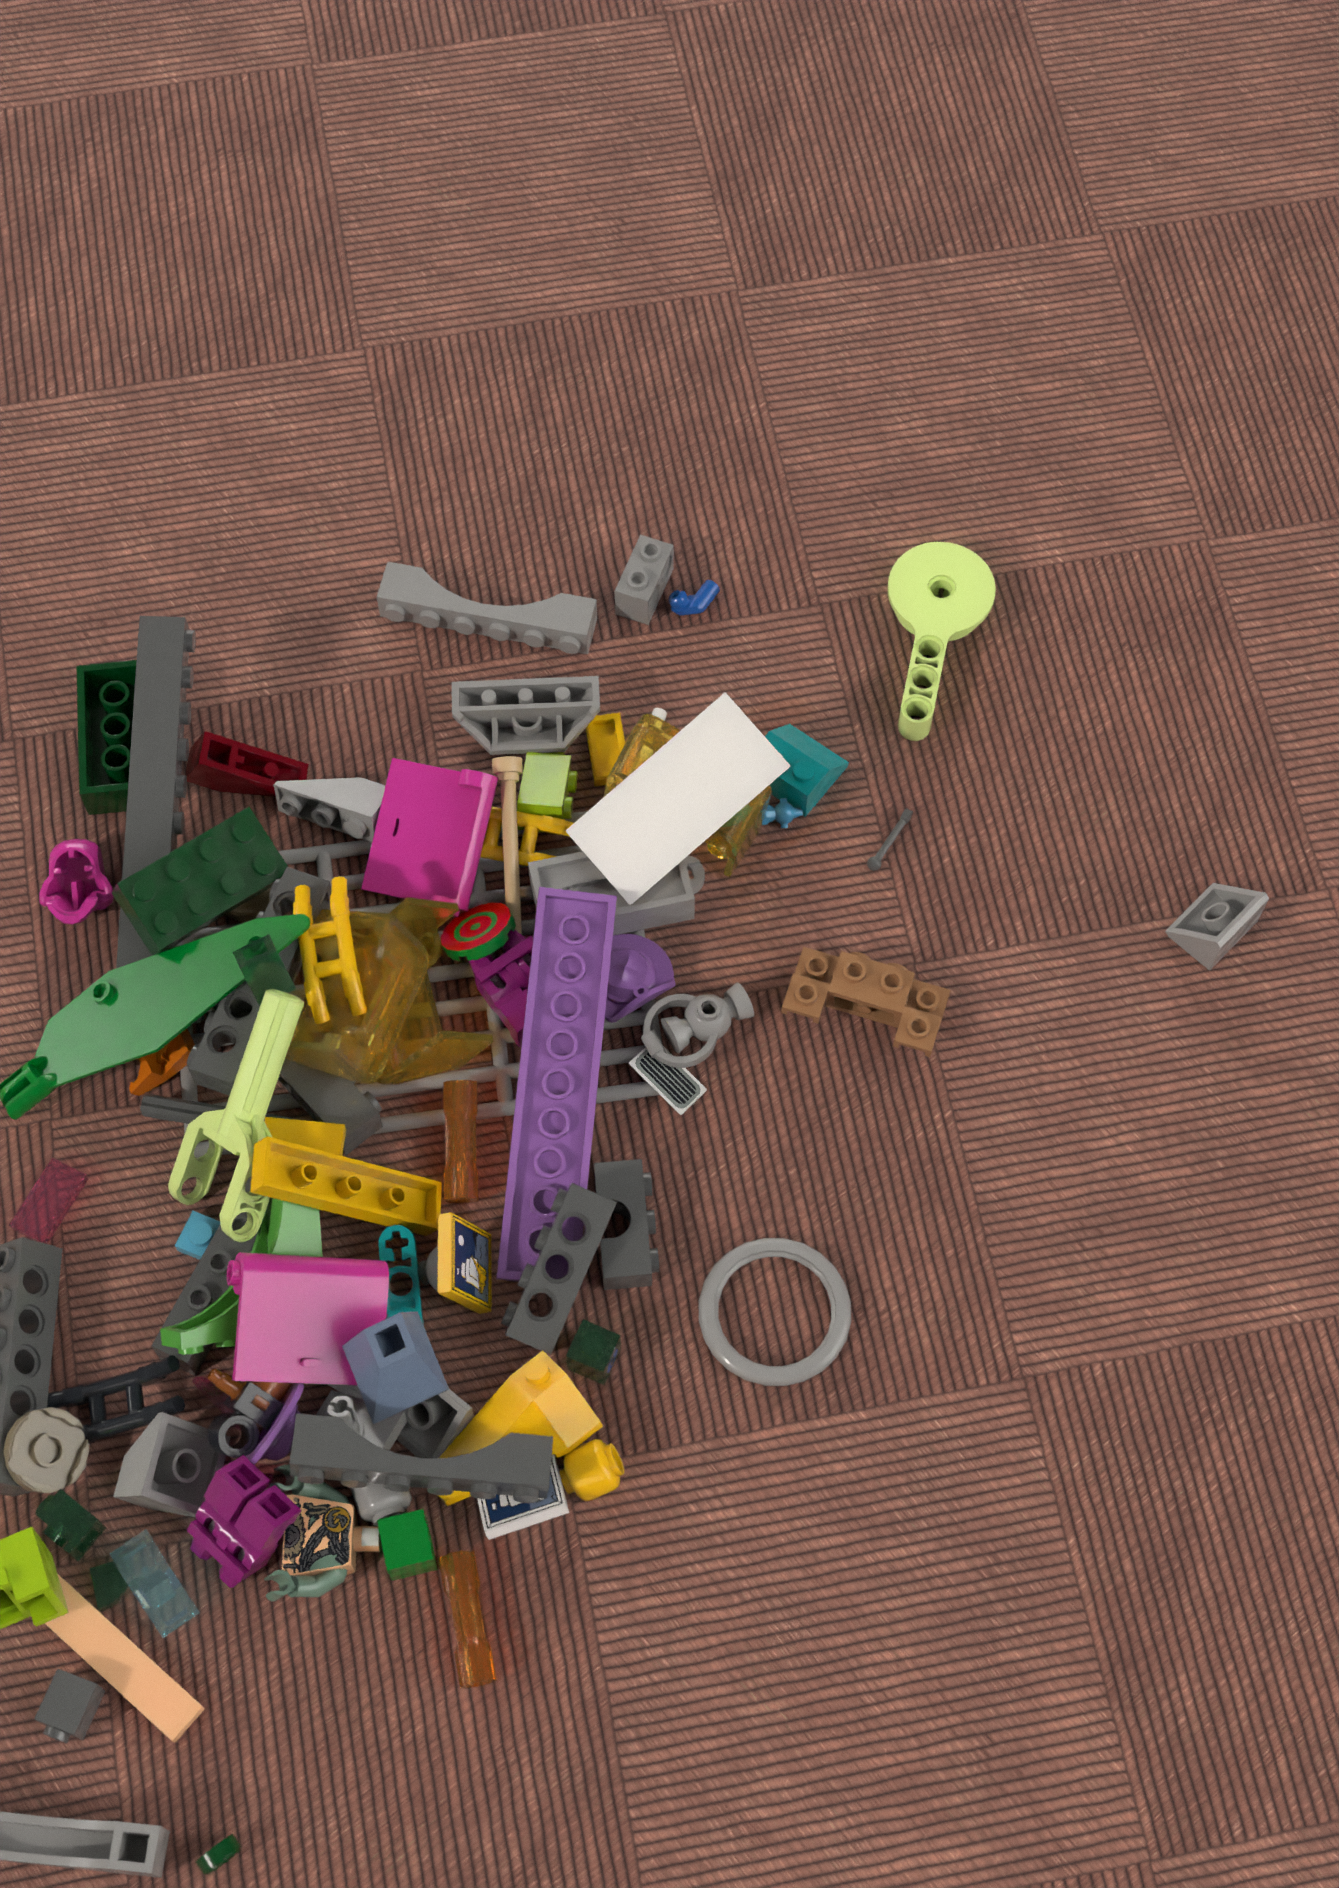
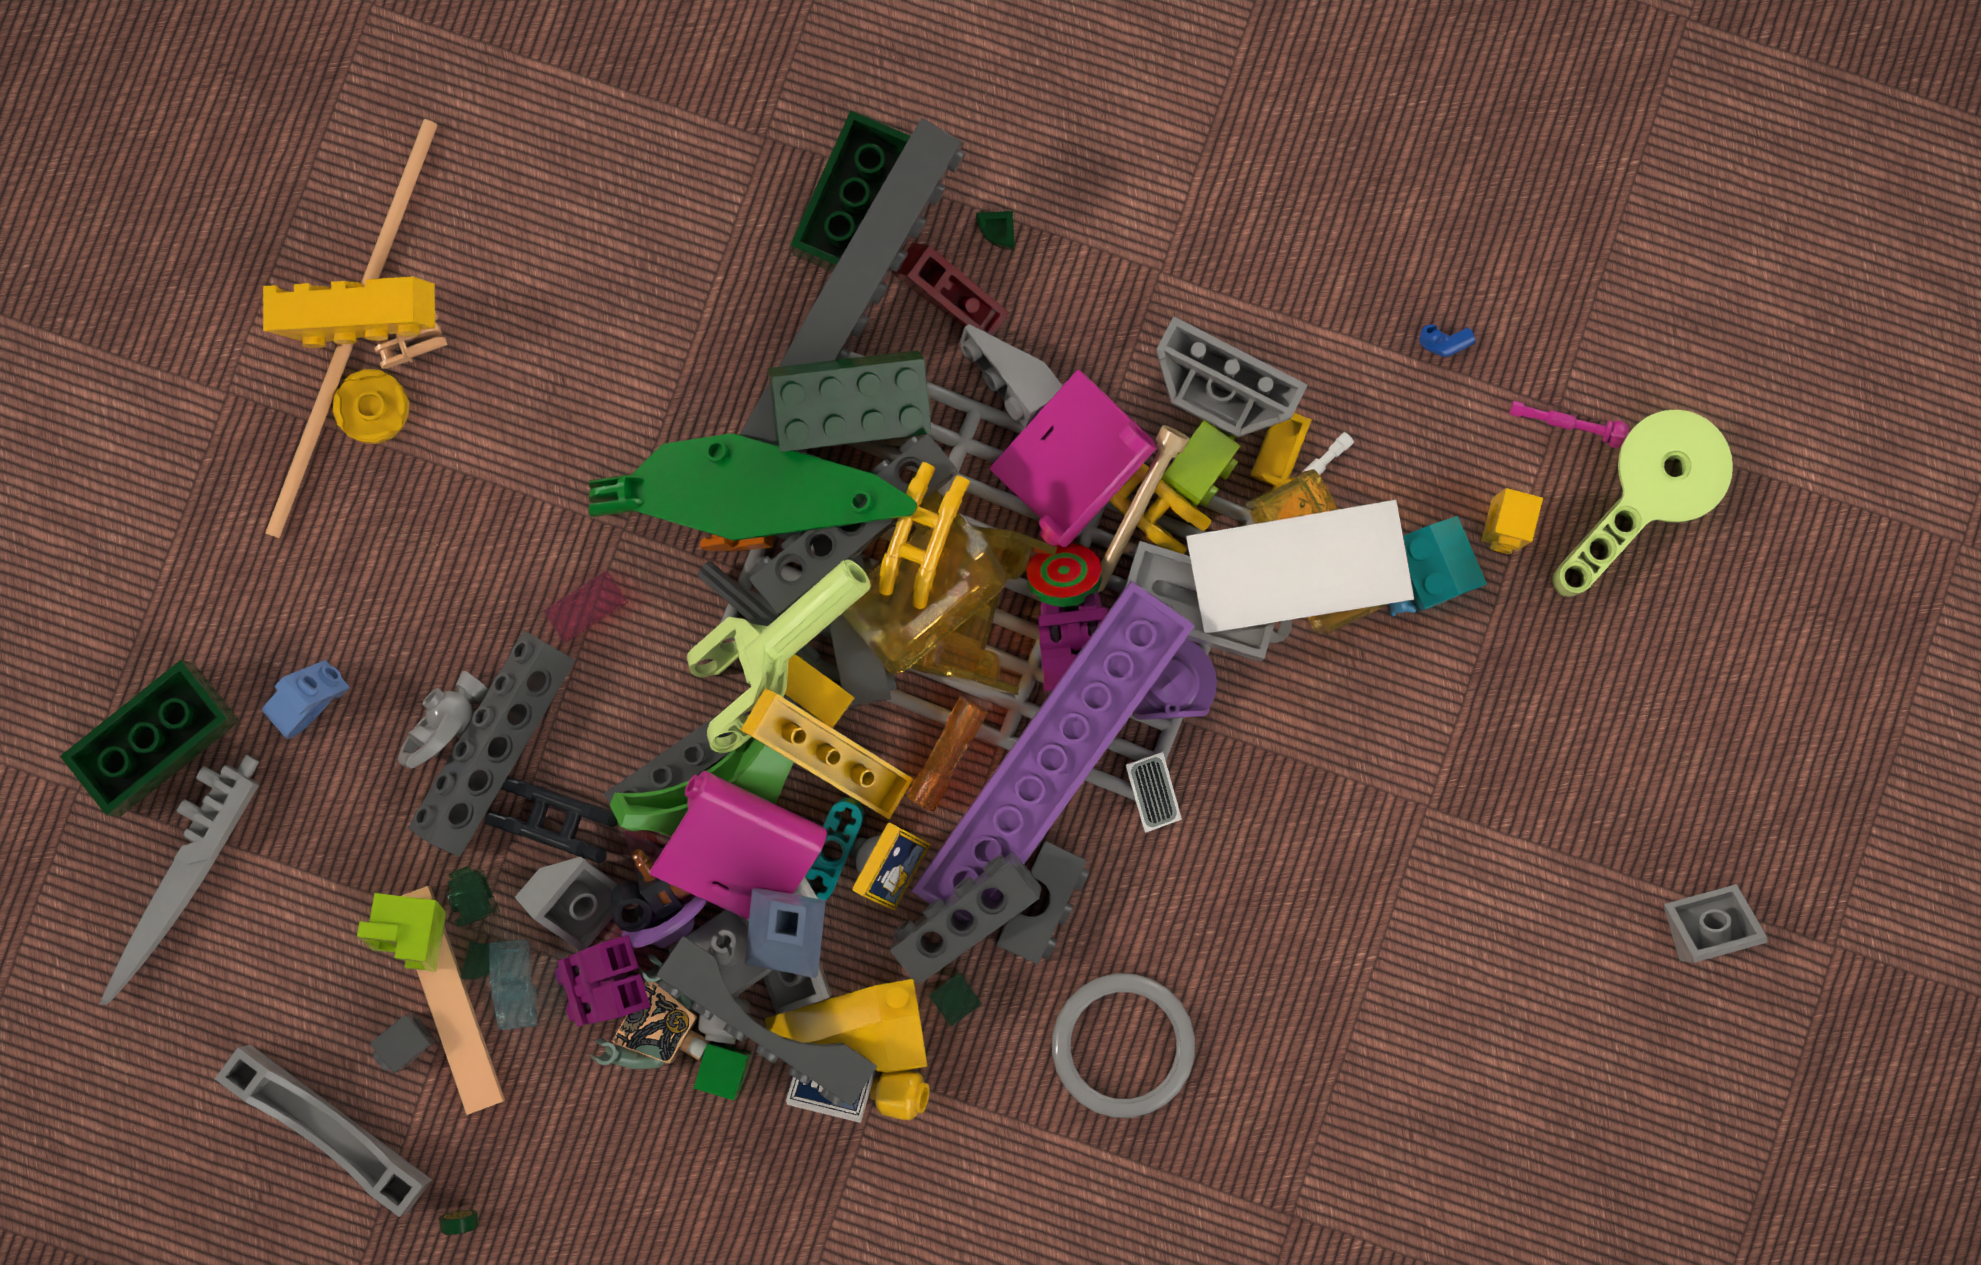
camera: 30 degrees right, 20 degrees up
(46, 1450) = (479, 832): dark tan tile -> none
(76, 881) = (746, 327): dark pink head -> none
(196, 1235) = (693, 709): medium azure plate -> none
(260, 706) = (997, 228): none -> dark green tile
(263, 968) = (853, 533): clear green brick -> none
(472, 1650) = (747, 1127): clear orange axle -> none
(557, 622) = (1308, 297): light grey arch -> none
(644, 579) = (1410, 297): light grey brick -> none
(704, 1019) = (1185, 761): light grey piece -> none
(835, 694) = (1511, 520): none -> yellow brick
(869, 991) = (1371, 815): medium nougat bracket -> none
(874, 863) = (1450, 694): dark grey hinge -> none
(875, 597) = (1612, 433): none -> dark pink piece

